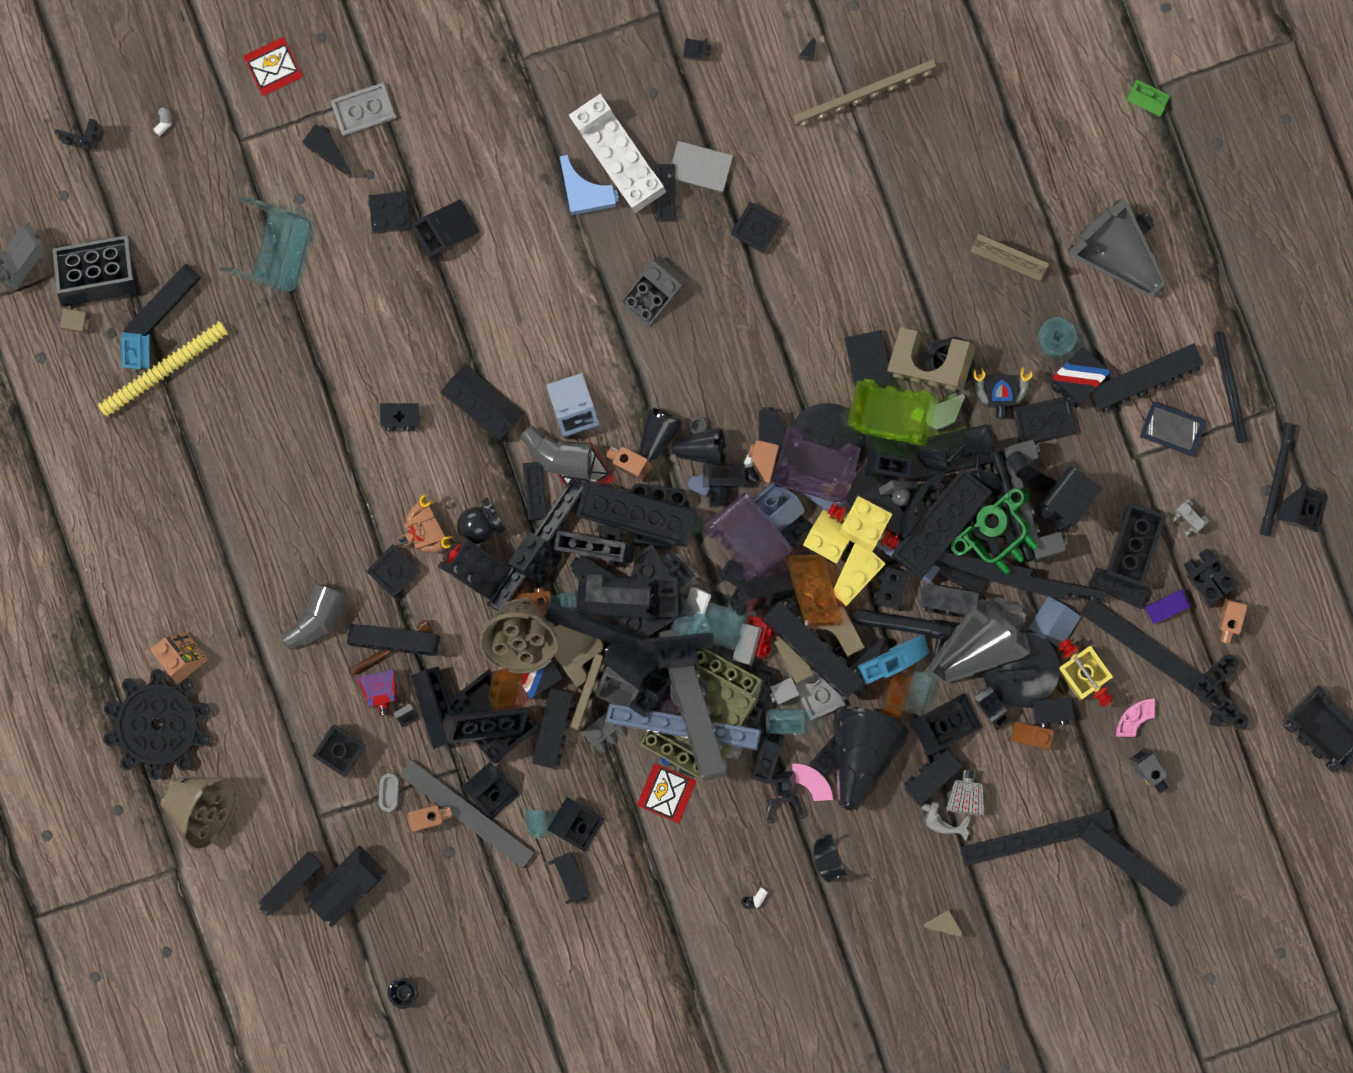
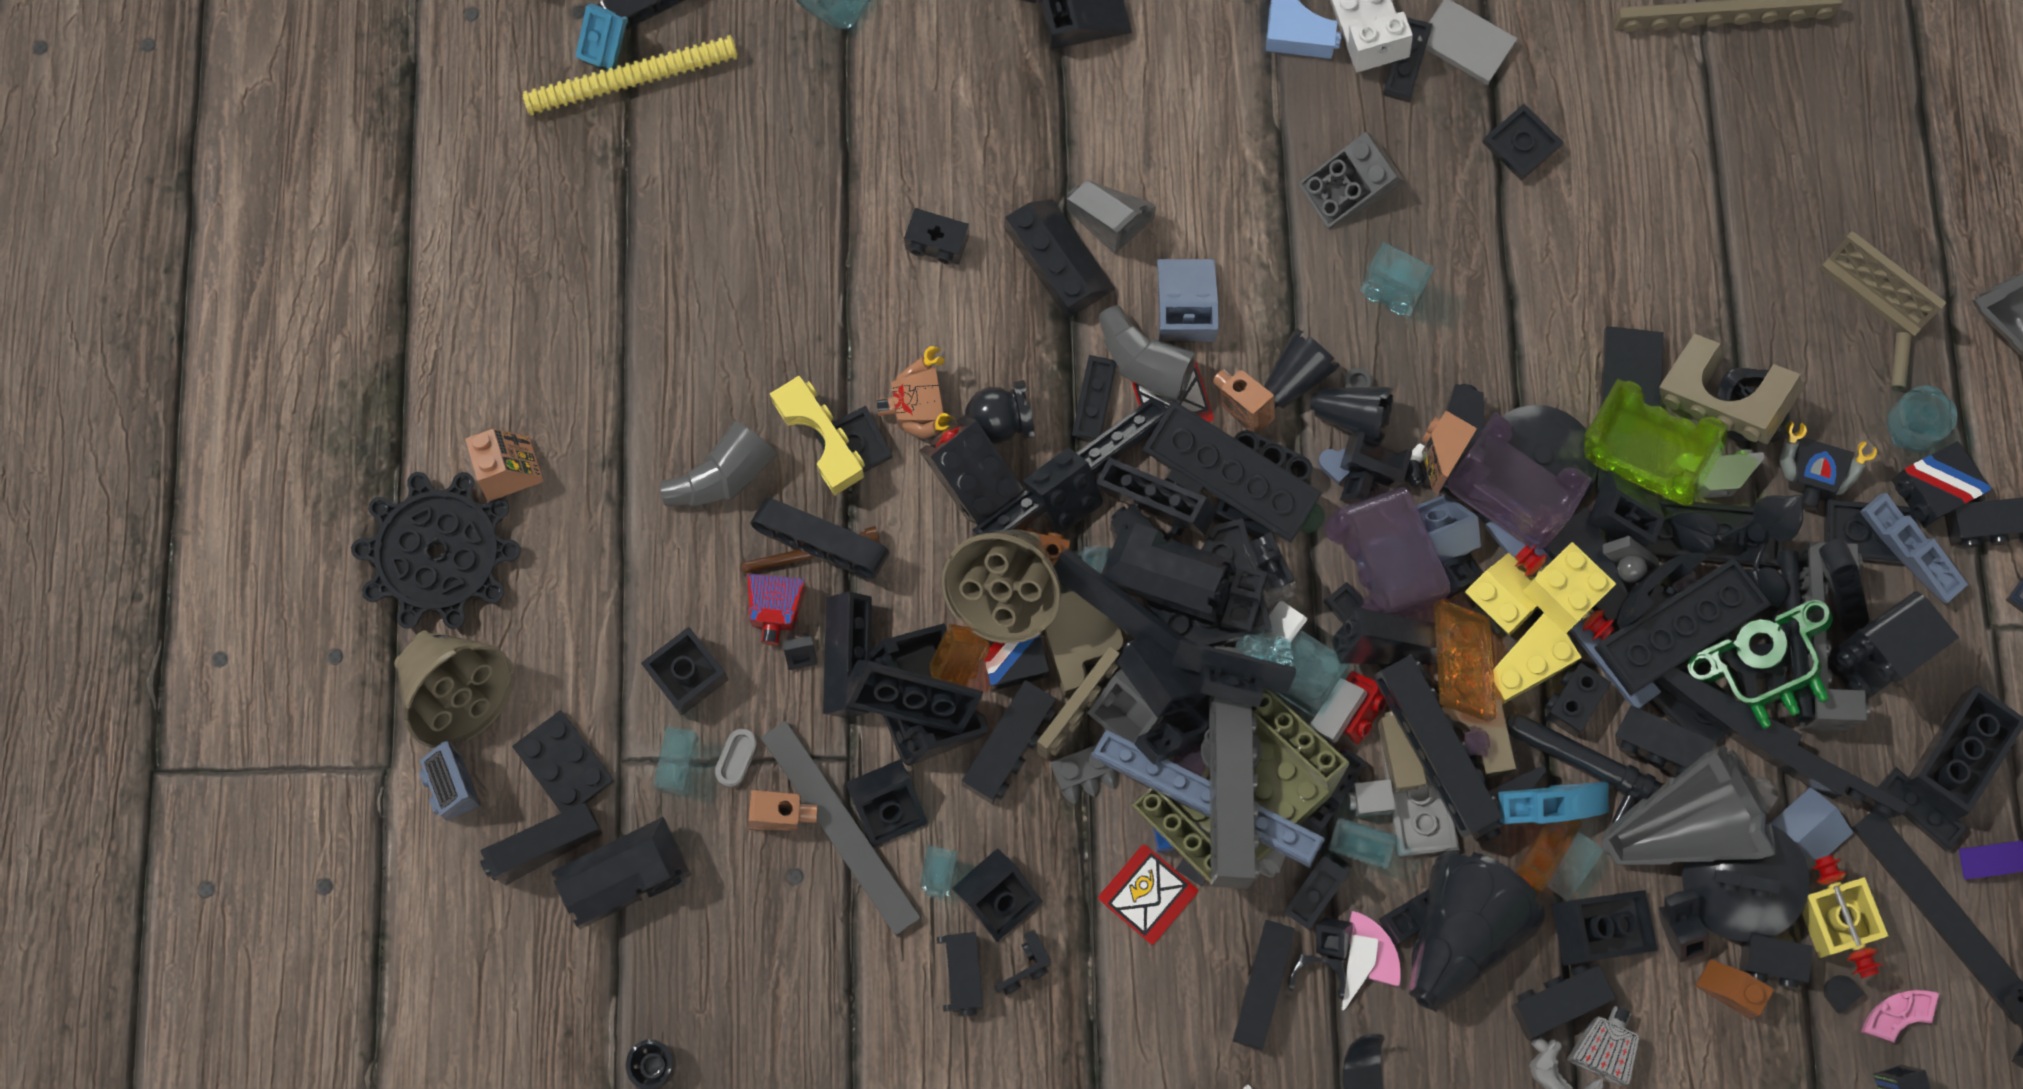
camera: 20 degrees right, 10 degrees down
(219, 865) = (448, 781): none -> sand blue slope
(284, 830) = (563, 763): none -> black plate
(351, 559) = (798, 406): none -> light yellow arch
(354, 807) = (676, 761): none -> clear light blue brick
(505, 364) = (1109, 213): none -> dark grey slope
(607, 849) = (1033, 950): none -> black bracket
(701, 353) = (1396, 279): none -> clear light blue brick
(752, 826) = (1263, 985): none -> black slope
(806, 793) = (1360, 963): none -> white sticker
(836, 639) = (1477, 741): none -> clear purple plate
(1036, 300) = (1901, 361): none -> dark tan piece
(1072, 424) = (1913, 549): none -> sand blue slope
(1097, 716) = (1841, 992): none -> black tile

